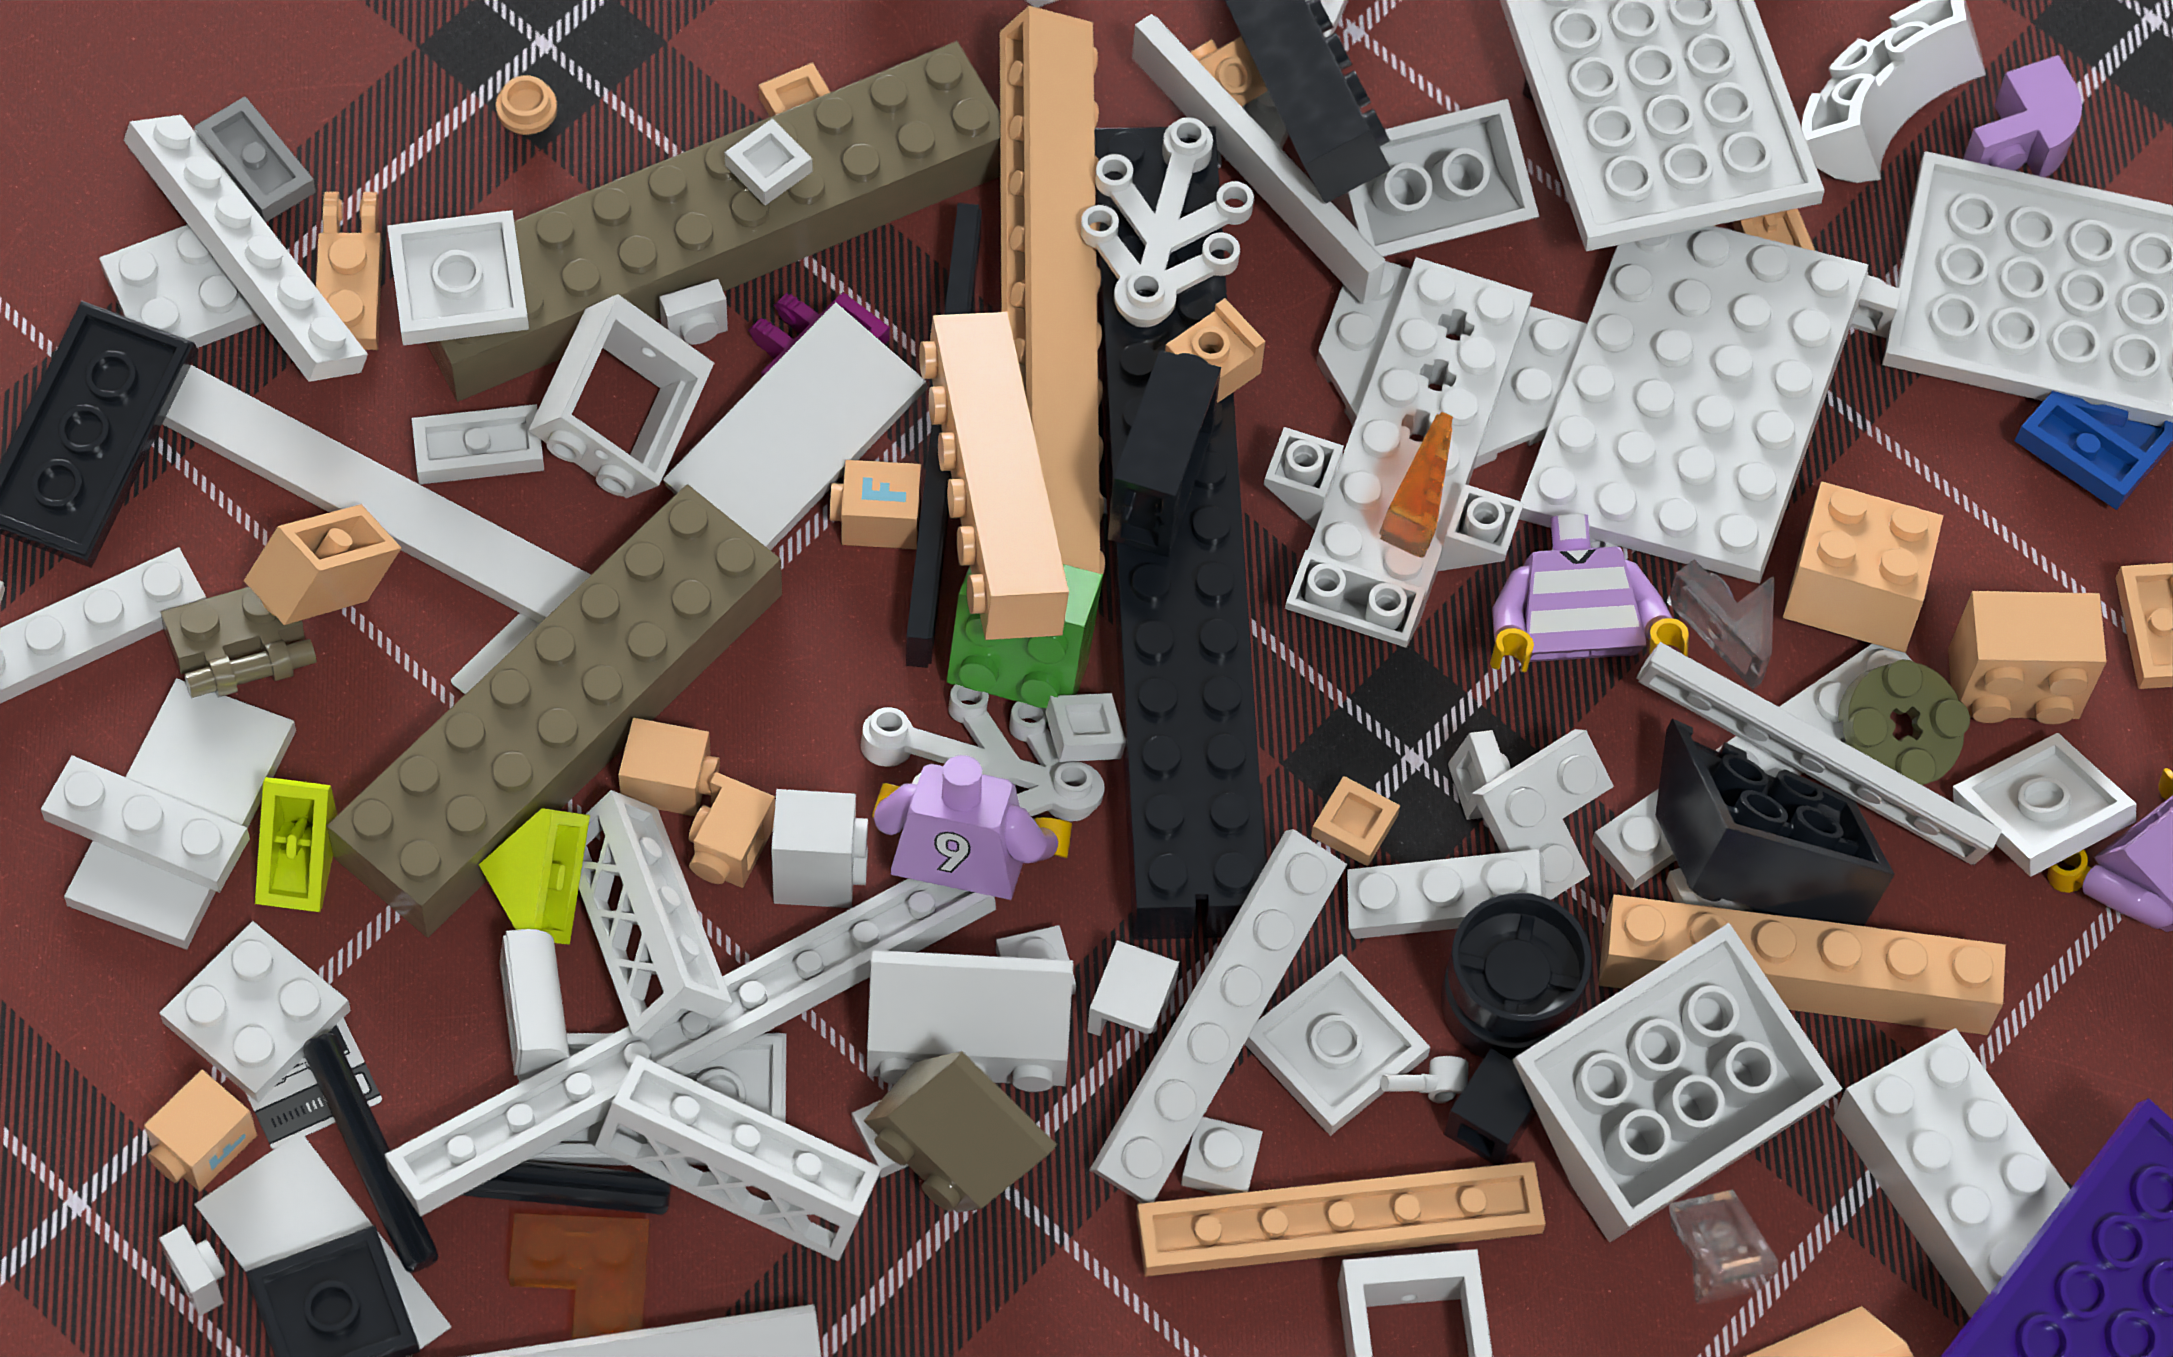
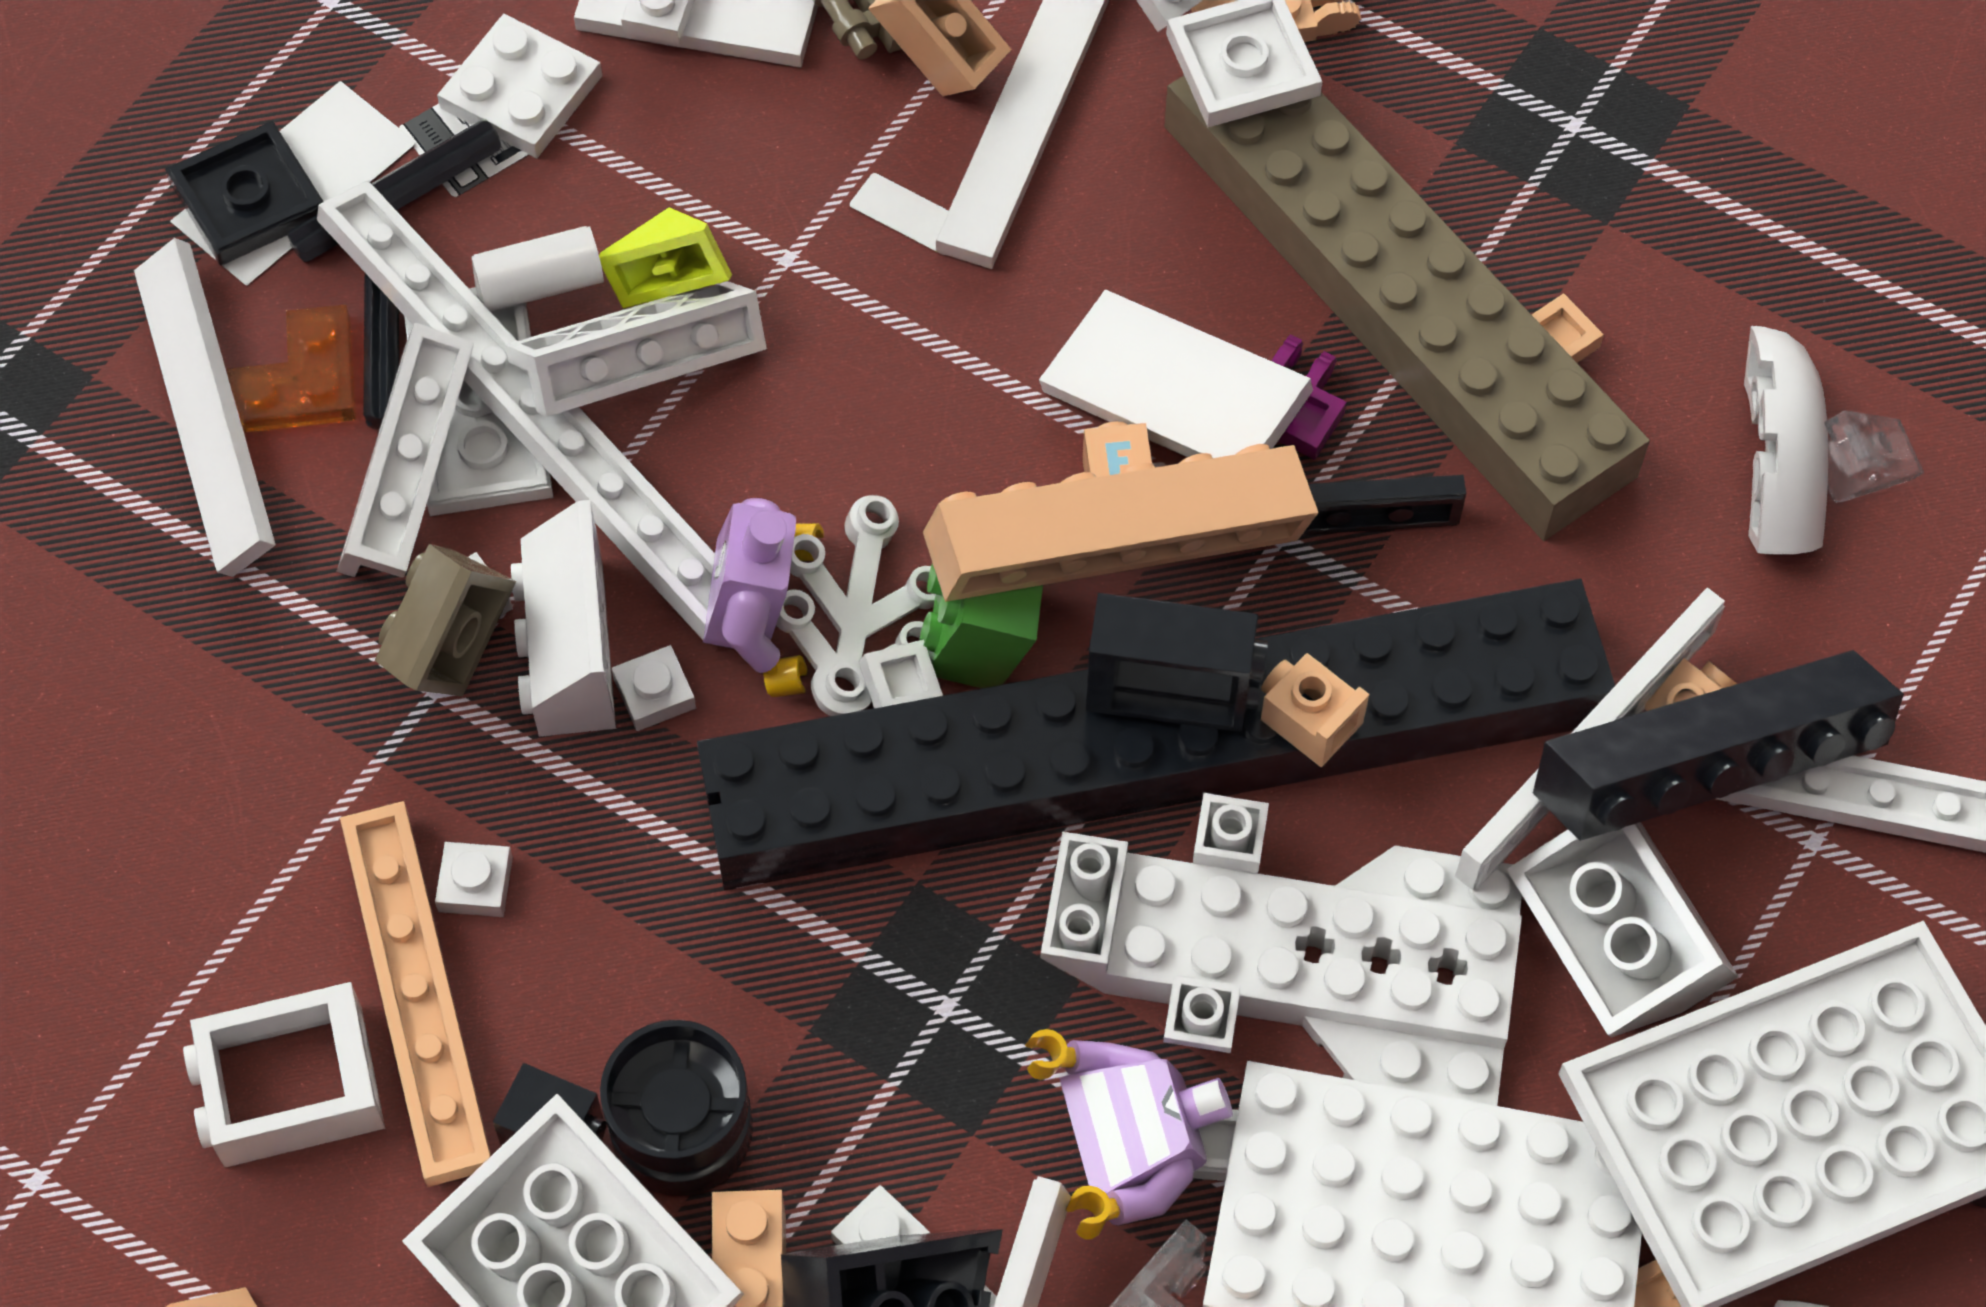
camera: 85 degrees right, 0 degrees up
(195, 1268) = (265, 79): white plate -> none
(199, 1132) = (393, 60): light nougat brick -> none
(294, 844) = (674, 77): neon yellow slope -> none
(476, 444) = (1112, 141): white plate -> none
(526, 105) = (1492, 116): light nougat plate -> none
(556, 708) = (850, 247): dark tan brick -> none
(651, 352) = (1098, 242): white window -> none
(667, 766) = (801, 342): light nougat brick -> none
(695, 312) = (1291, 285): white plate -> none
(731, 831) = (743, 406): light nougat brick -> none
(768, 162) = (1440, 284): white plate -> none
(817, 848) = (719, 457): white brick -> none
(1047, 266) = (1404, 560): light nougat brick -> none
(1133, 989) = (626, 762): white panel -> none
(1164, 230) = (1461, 646): white plant -> none
(1218, 1017) = (602, 838): white plate -> none
(1335, 1044) = (602, 962): white plate -> none
(1355, 821) = (852, 949): light nougat plate -> none
(1416, 505) = (1209, 933): clear orange slope -> none
(1436, 892) = (775, 1042): white plate -> none
(1445, 1079) = (581, 1069): white hand -> none
(1474, 766) = (923, 1062): white plate -> none
(1532, 799) = (882, 1104): white plate -> none

